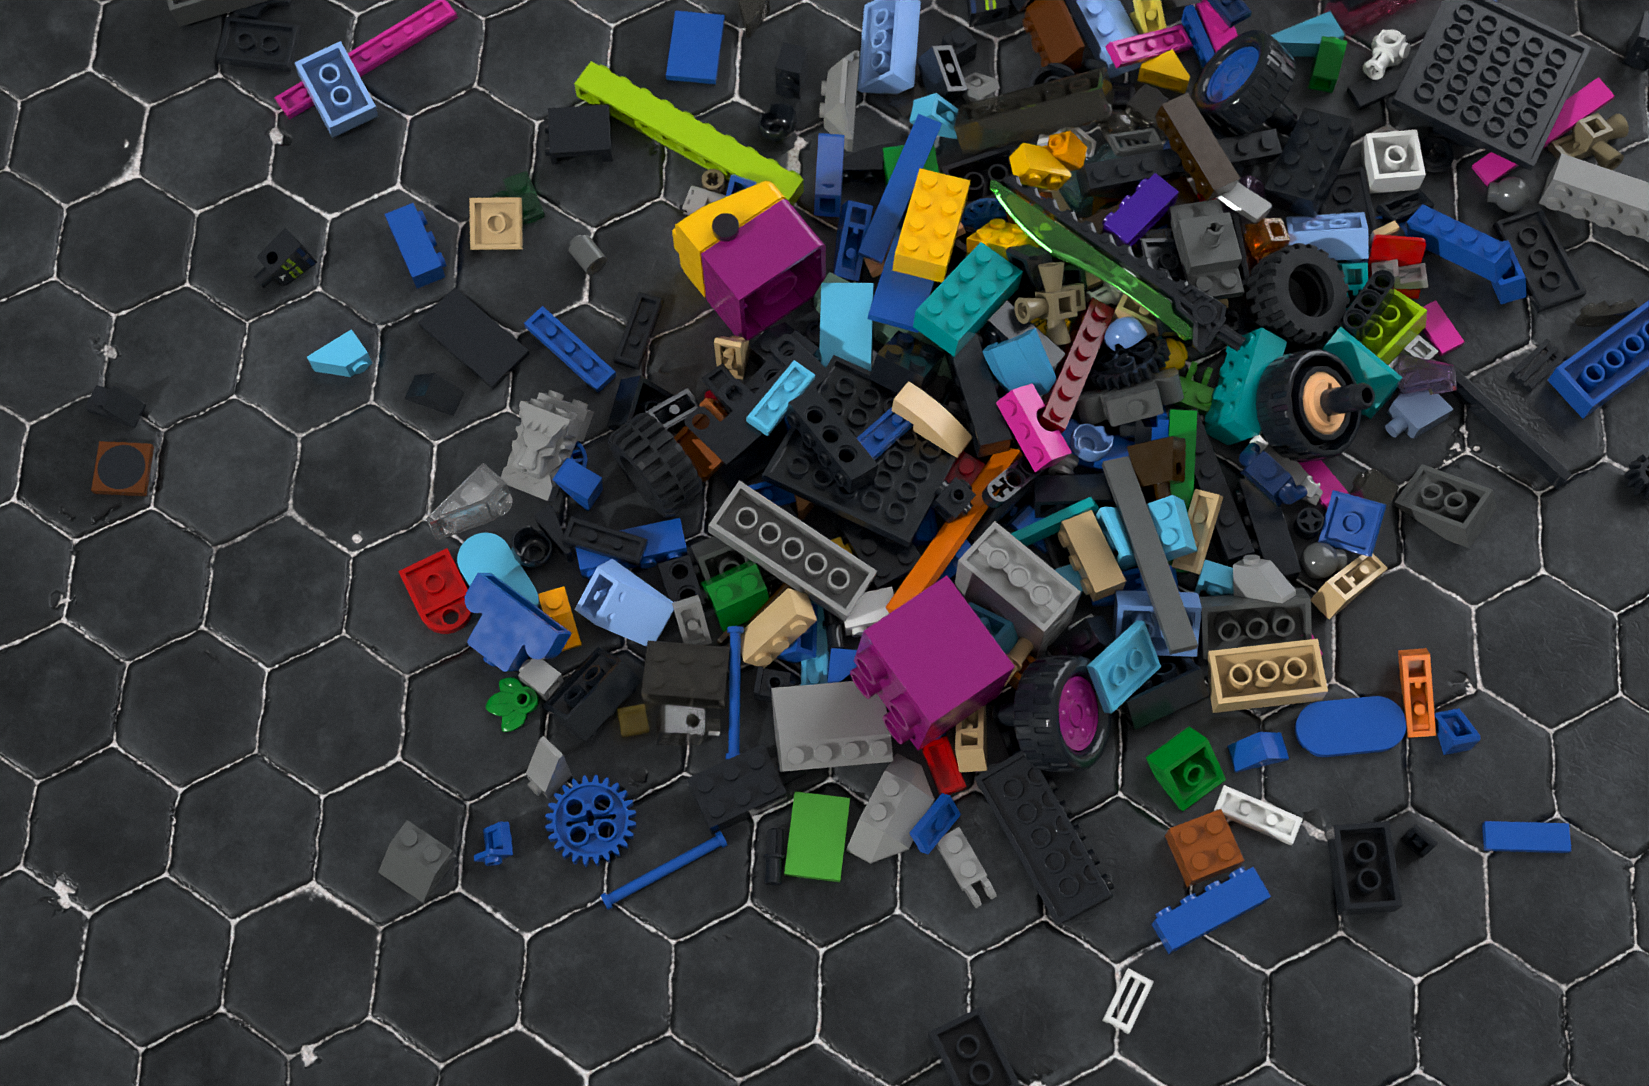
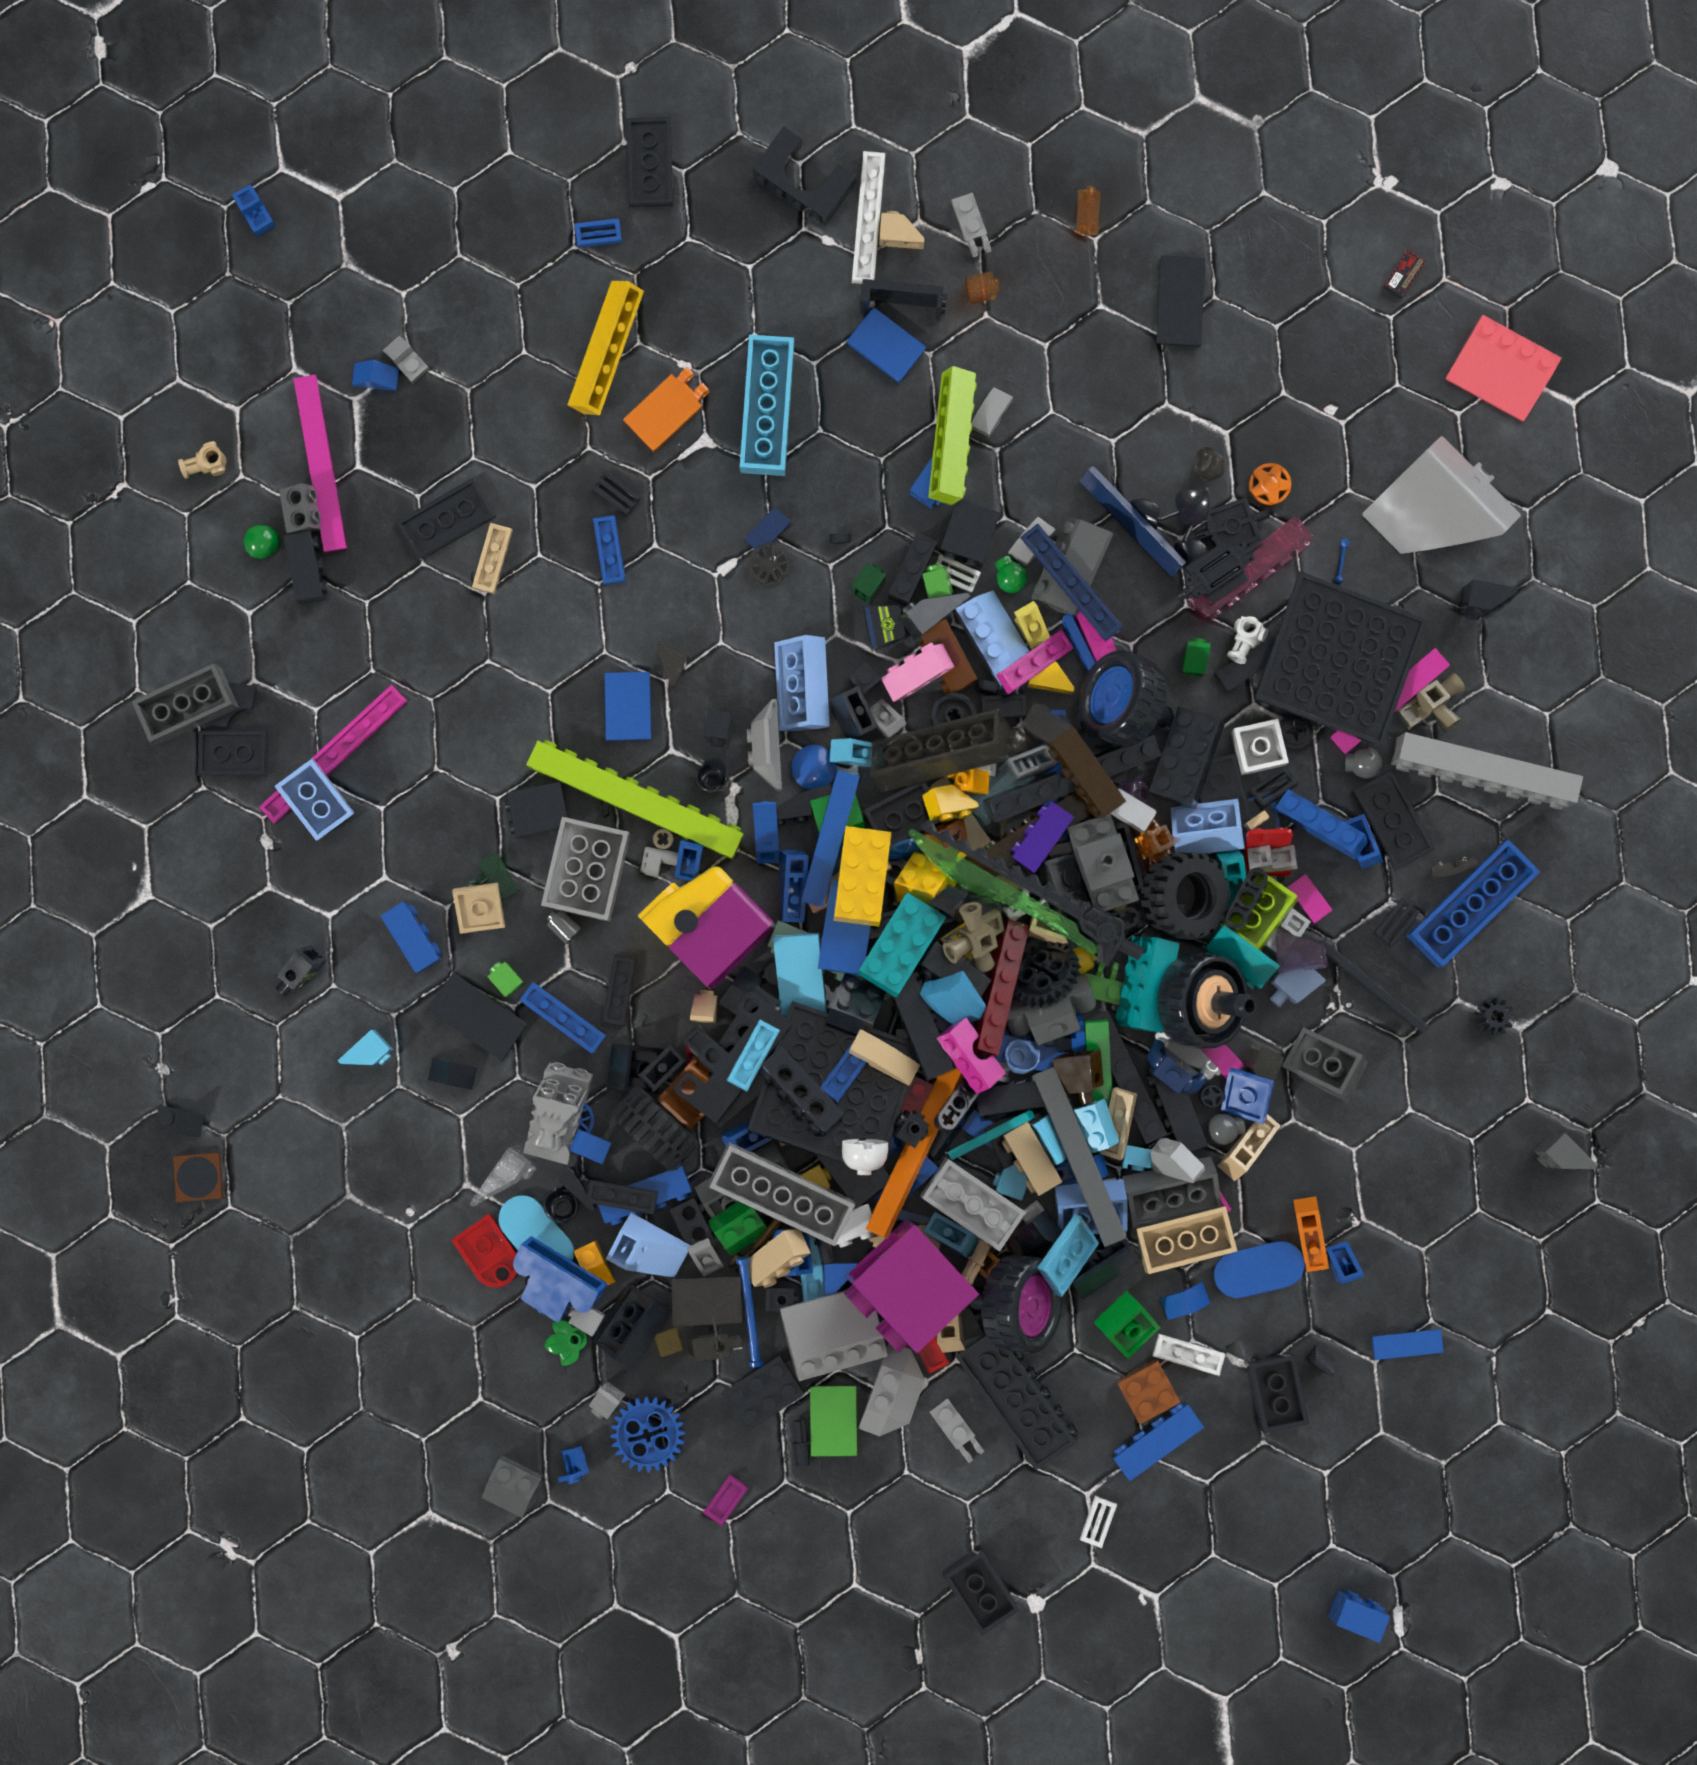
camera: 10 degrees left, 15 degrees up
(512, 300) = (505, 978): none -> bright green brick
(623, 195) = (586, 869): none -> light grey slope
(664, 870) = (712, 1466): blue bar -> none
(673, 913) = (725, 1499): none -> magenta tile
(888, 126) = (813, 767): none -> blue dish
(896, 512) = (864, 1155): none -> white cylinder
(935, 823) = (927, 1400): blue plate -> none
(1018, 40) = (917, 671): none -> bright pink brick
(1124, 331) = (1040, 951): medium blue hair -> none
(1305, 37) = (1178, 629): medium azure slope -> none

